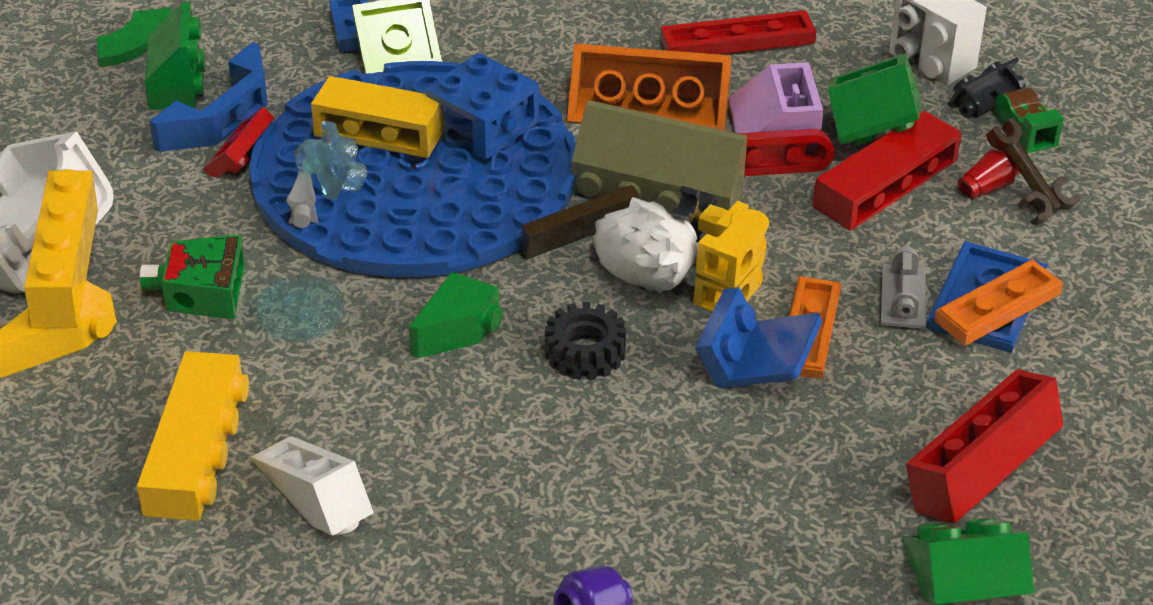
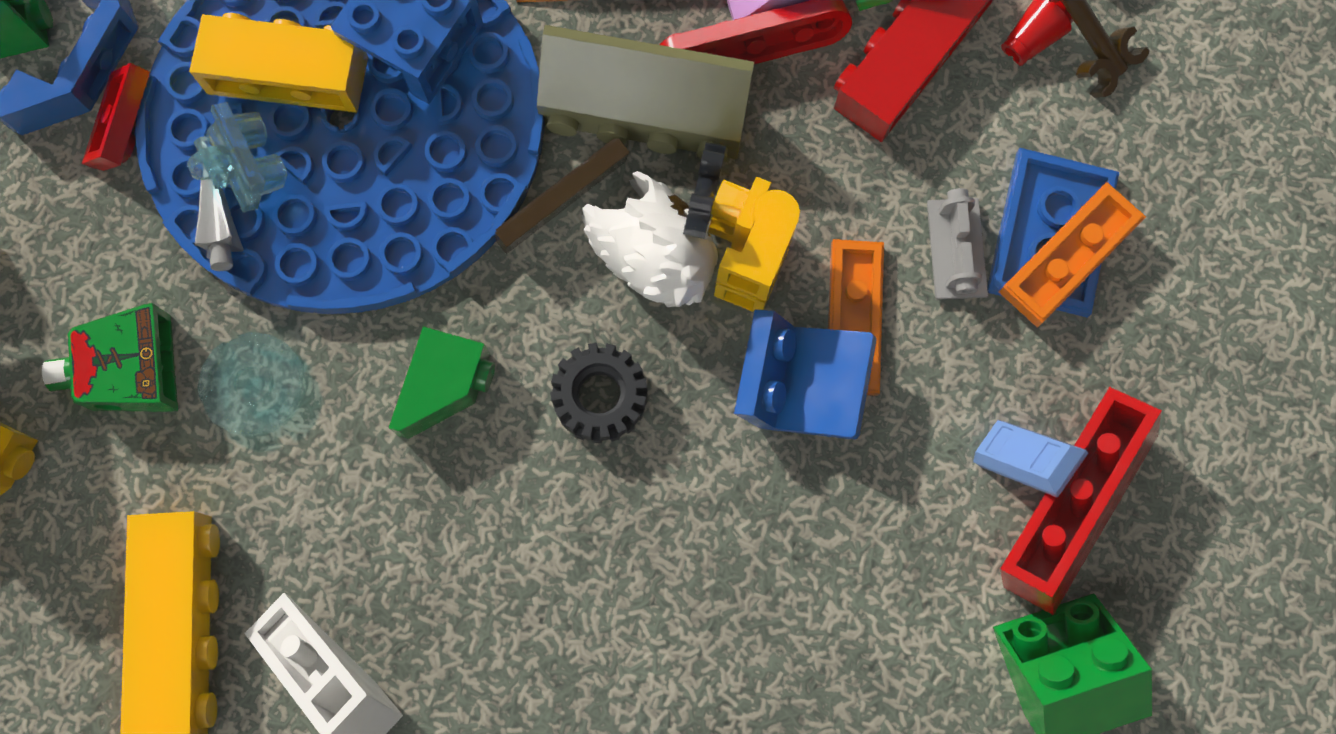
camera: 10 degrees left, 35 degrees up
(943, 409) = (1029, 457): none -> medium blue tile

